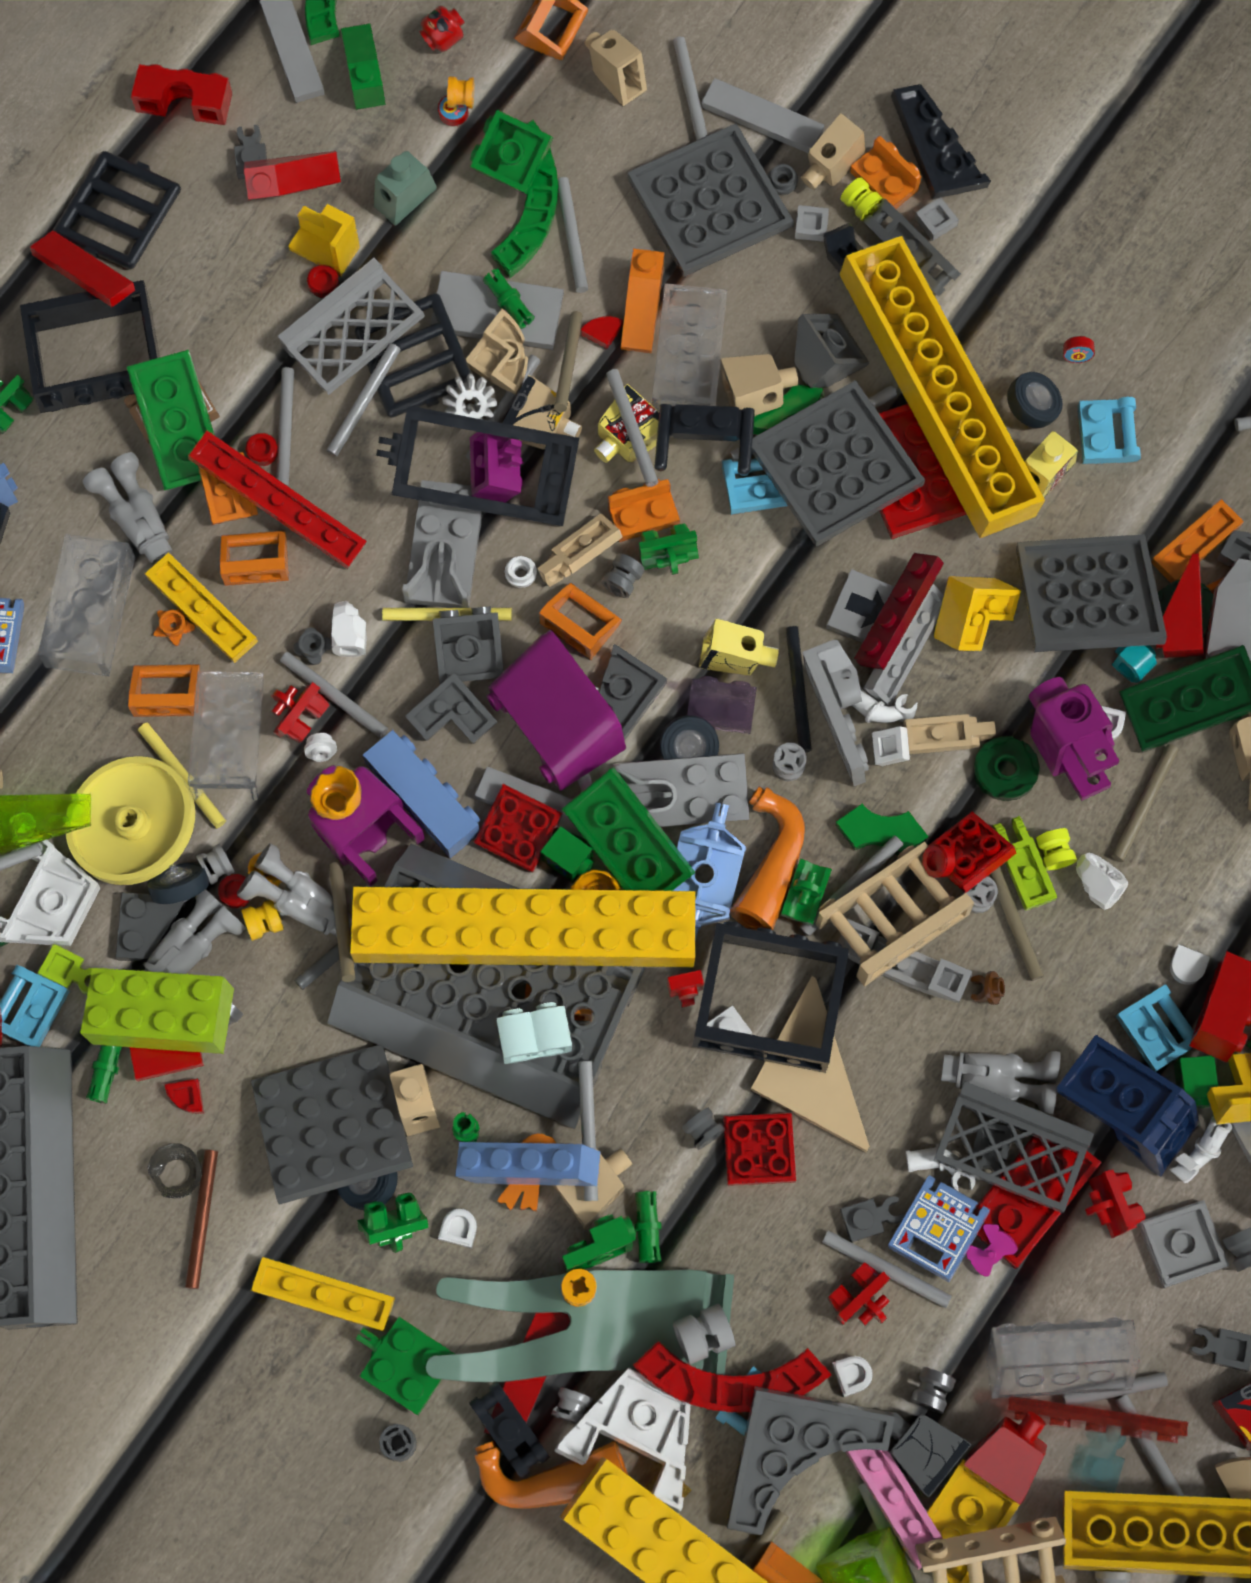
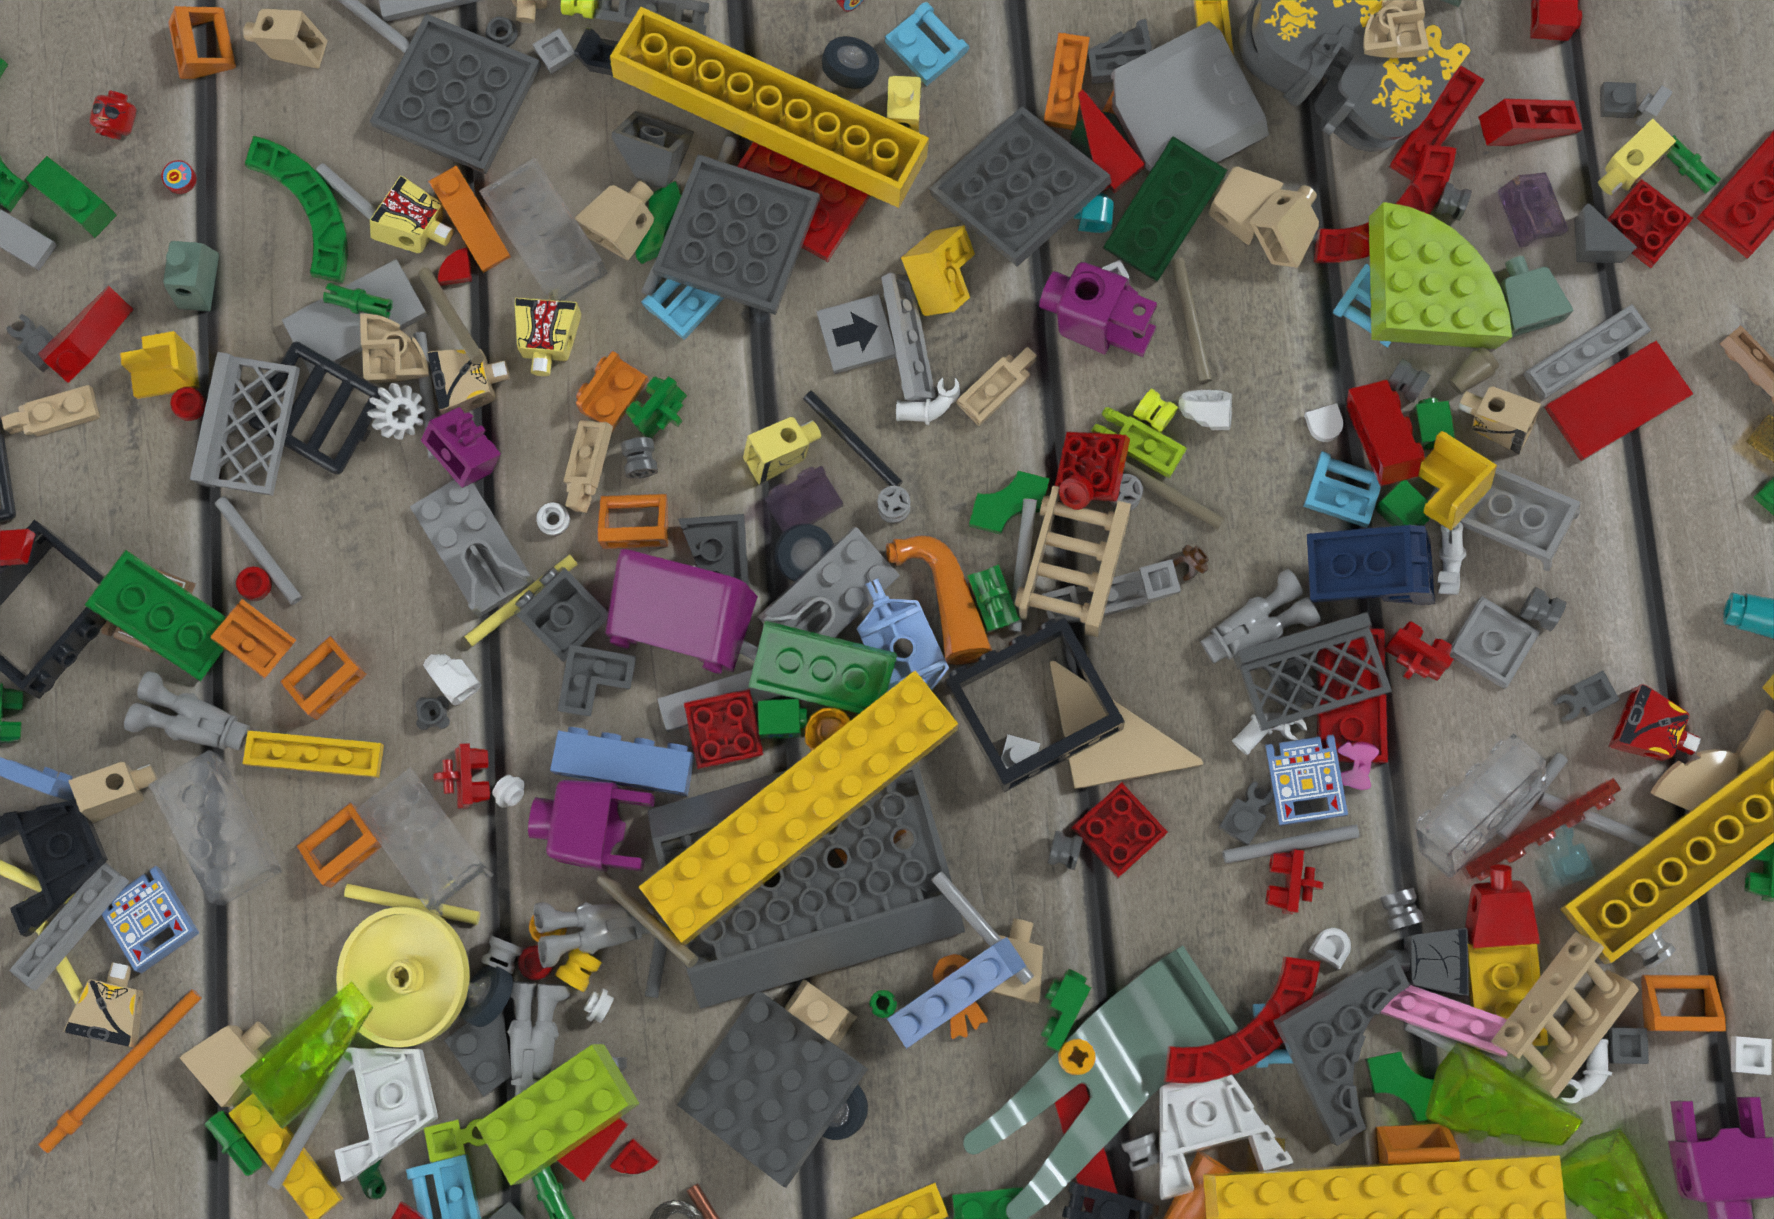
camera: 35 degrees left, 5 degrees up
(35, 517) = (98, 793): none -> tan torso
(175, 634) = (309, 792): orange plate -> none
(221, 214) = (53, 412): none -> tan hinge
(254, 958) = (598, 1005): none -> white plate
(277, 499) = (303, 616): red plate -> none
(334, 695) = (483, 738): light grey bar -> none
(336, 794) = (561, 822): light orange hair -> none
(363, 399) = (305, 477): light grey bar -> none
(392, 1226) = (888, 1125): green hips -> none
(458, 1228) = (938, 1085): white tile -> none
(460, 92) = (174, 157): light orange wheel -> none
(510, 151) = (258, 176): green plate -> none
(534, 1033) = (878, 886): light aqua brick -> none
(554, 477) = (520, 423): black animal -> none
(597, 266) = (409, 218): none -> light yellow torso
(632, 428) = (549, 331): light grey piece -> none
(647, 1227) = (1084, 962): green pin -> none
(686, 987) = (963, 750): red plate -> none
(704, 1334) = (1201, 1012): light grey wheel -> none
(705, 423) = (607, 282): black plate -> none
(818, 1515) = (1393, 1076): none -> green tile
(835, 694) = (867, 412): light grey plate -> none
(891, 746) = (963, 429): white plate -> none
(899, 611) = (883, 315): dark red plate -> none
(999, 785) = (1064, 395): dark green tile -> none

